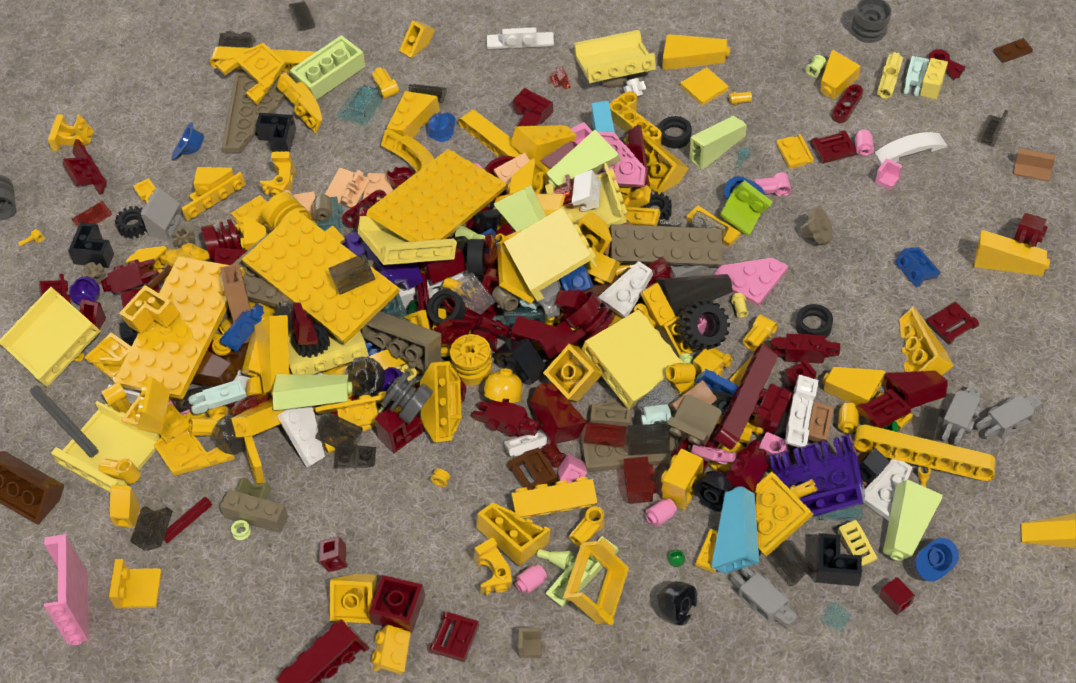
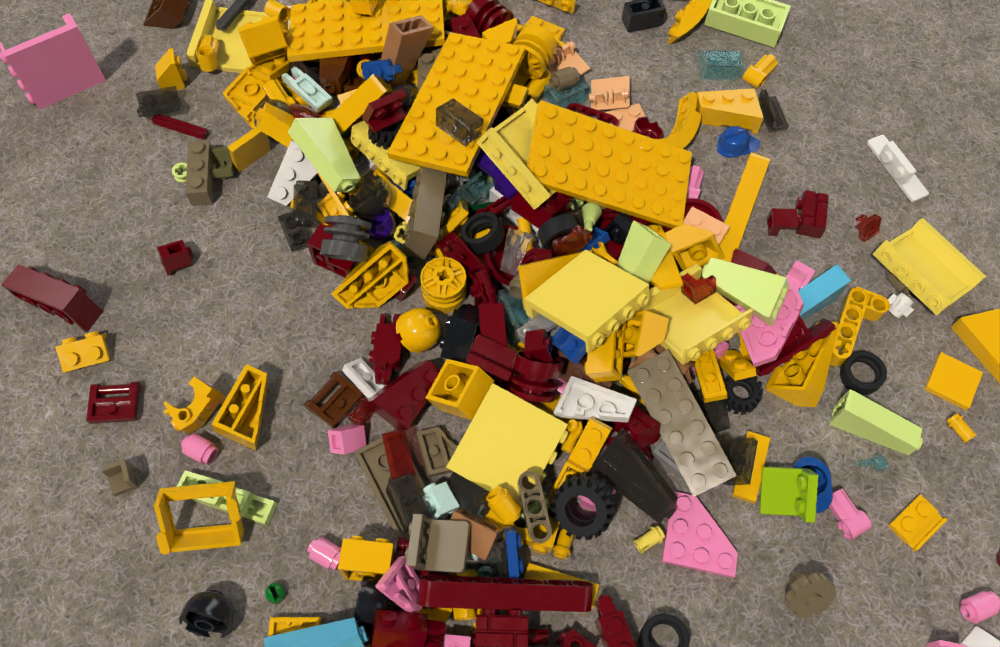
camera: 60 degrees right, 10 degrees up
(134, 586) = (94, 114): yellow bracket -> none
(285, 170) = (594, 36): yellow tile -> none
(352, 597) = (131, 294): yellow slope -> none
(397, 603) = (129, 334): dark red brick -> none
(416, 38) = (836, 73): yellow slope -> none
(440, 477) = (294, 315): yellow bush -> none
(541, 140) = (762, 239): yellow wedge -> none
(554, 499) = (301, 434): yellow brick -> none
(559, 558) = (234, 469): yellowish green cone -> none
(586, 190) = (705, 306): white hinge -> none
(587, 528) = (279, 482): yellow piece -> none
(638, 480) = (356, 513): clear red brick -> none
(684, 348) = (527, 496): none -> dark tan beam
(762, 328) = (624, 577): yellow piece -> none
(834, 147) = (948, 574): dark red plate -> none

